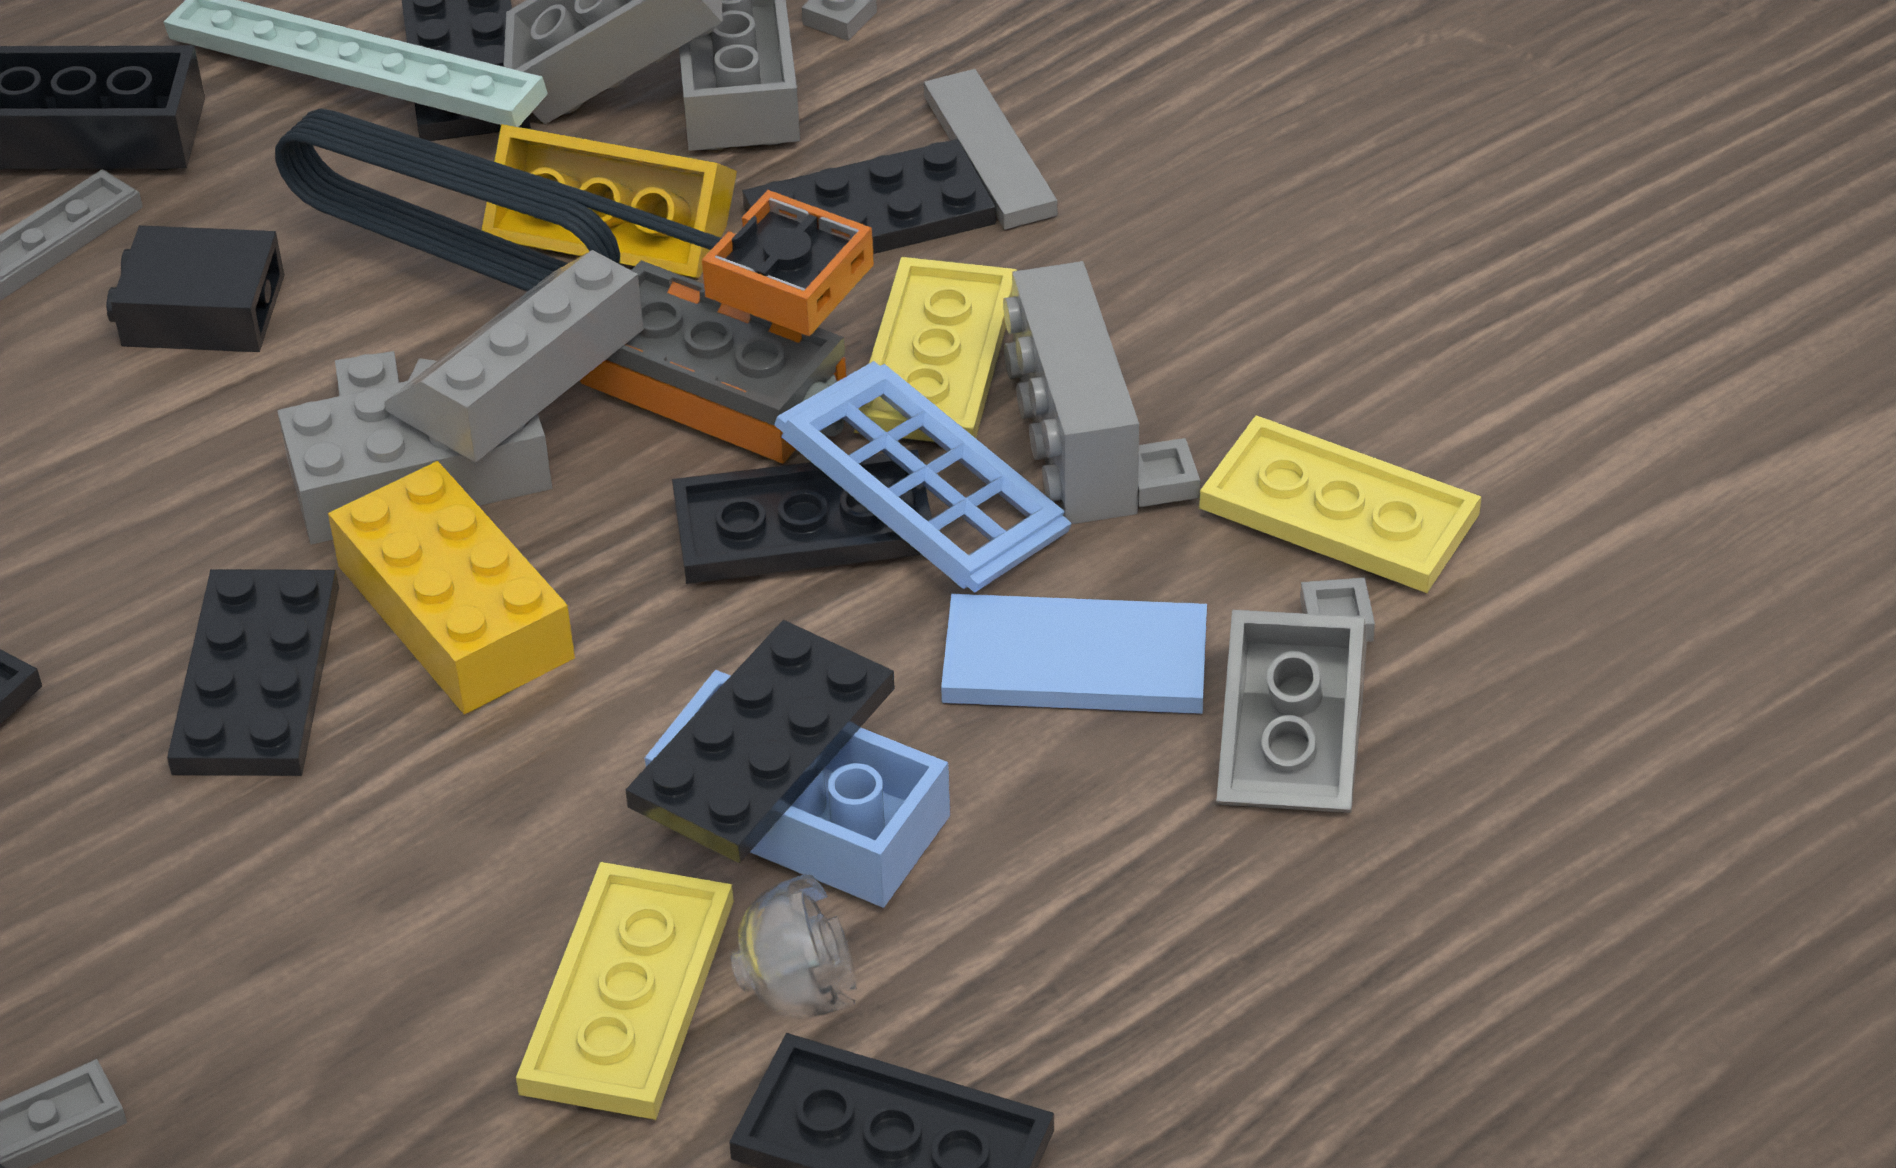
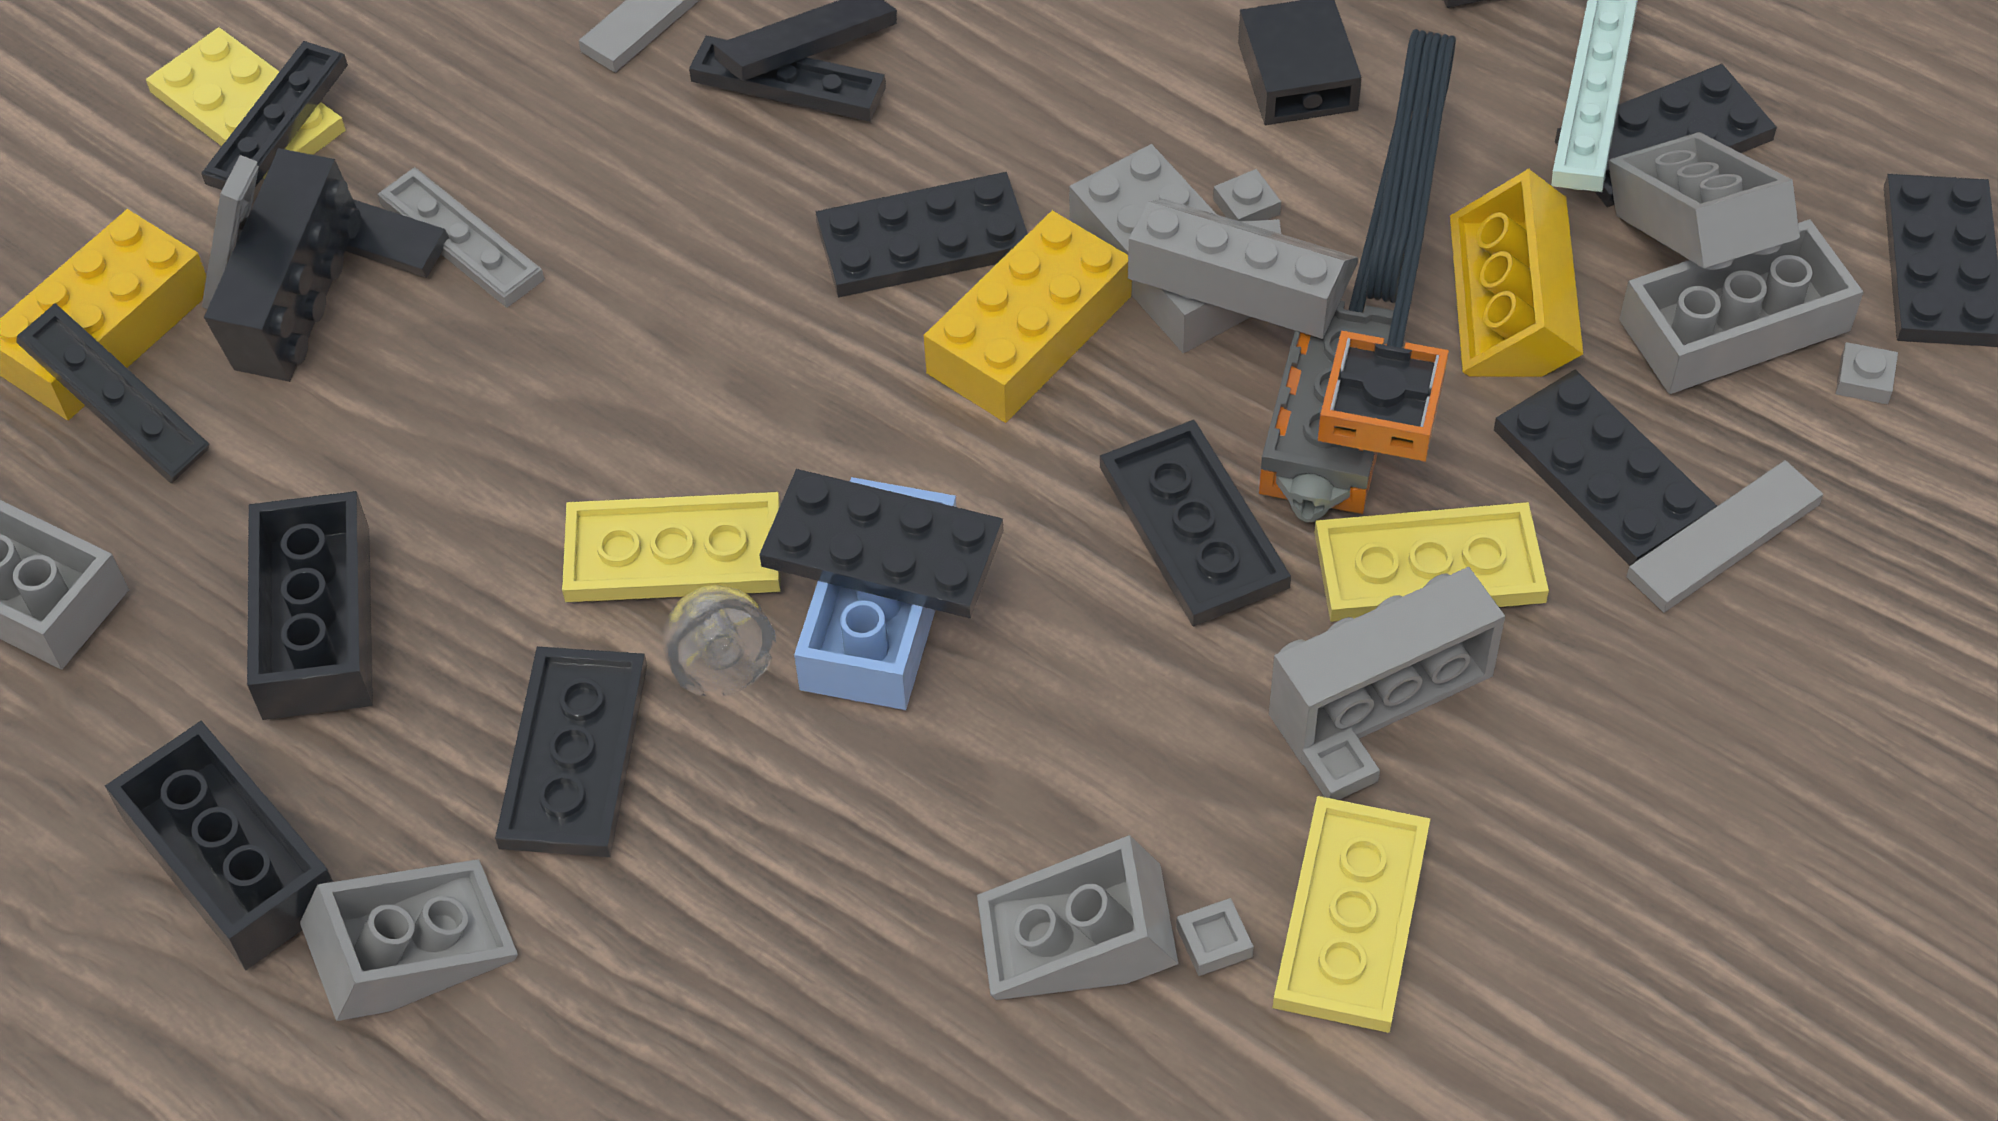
camera: 75 degrees right, 10 degrees up
(1005, 548) = (1290, 496): light blue piece -> none
(1075, 653) = (1110, 751): light blue tile -> none

